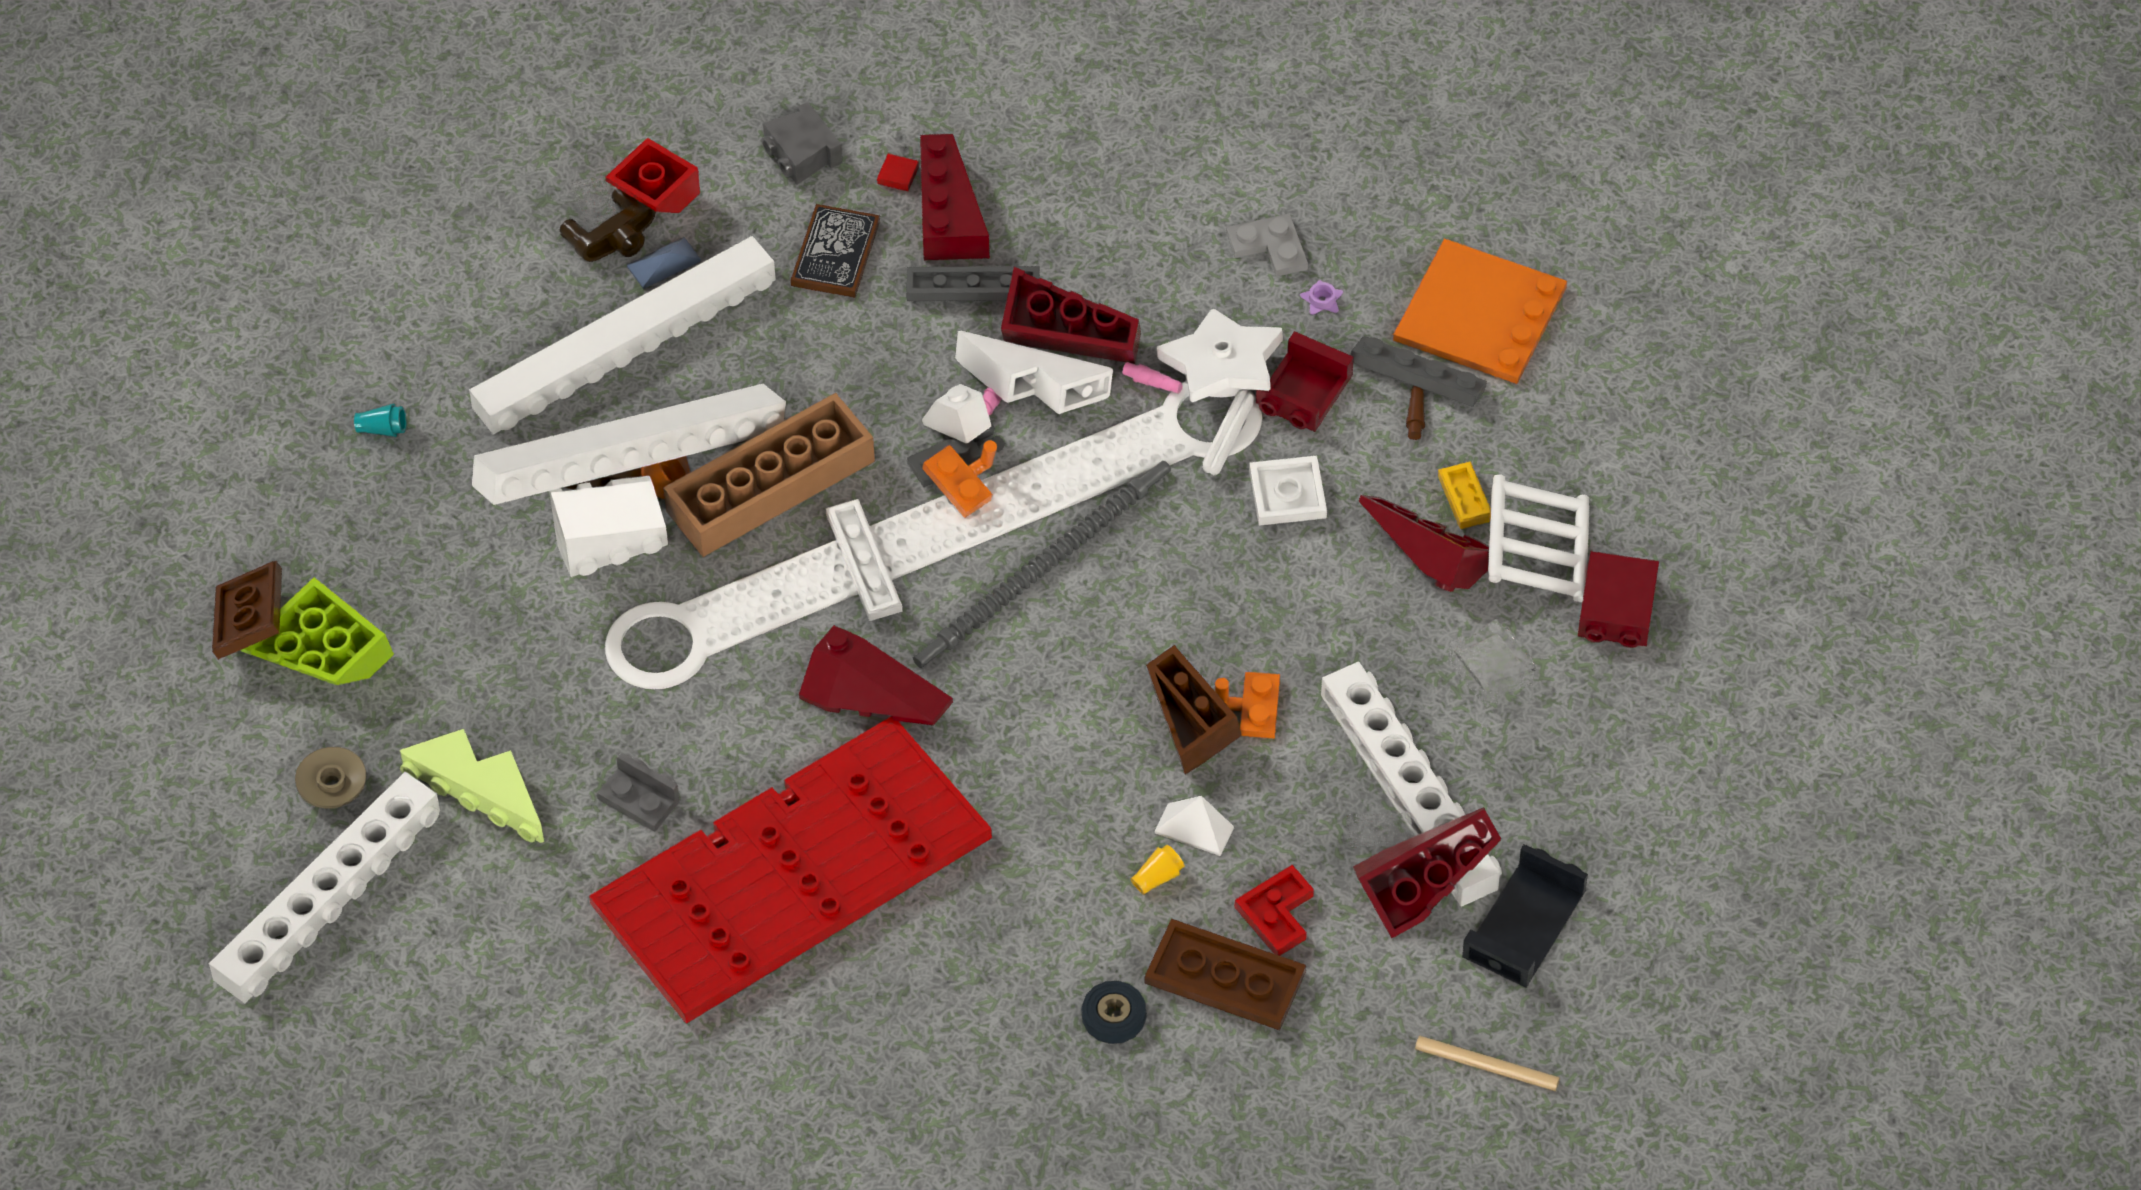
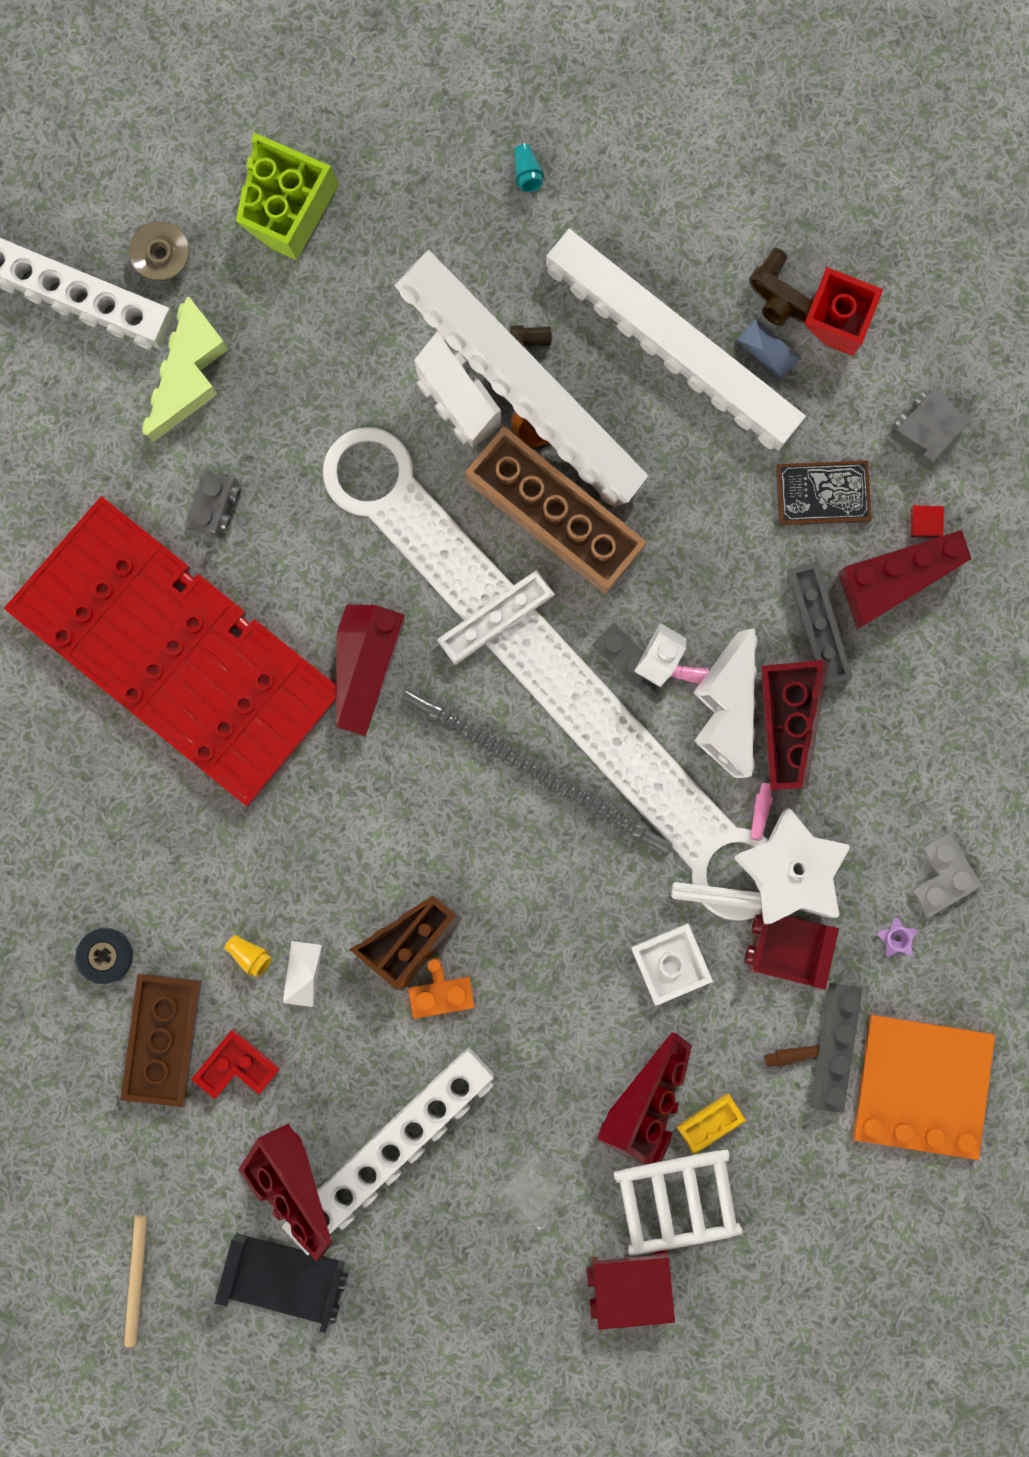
camera: 75 degrees right, 30 degrees up
(247, 609) = (294, 125): reddish brown tile -> none
(959, 480) = (597, 675): orange plate -> none

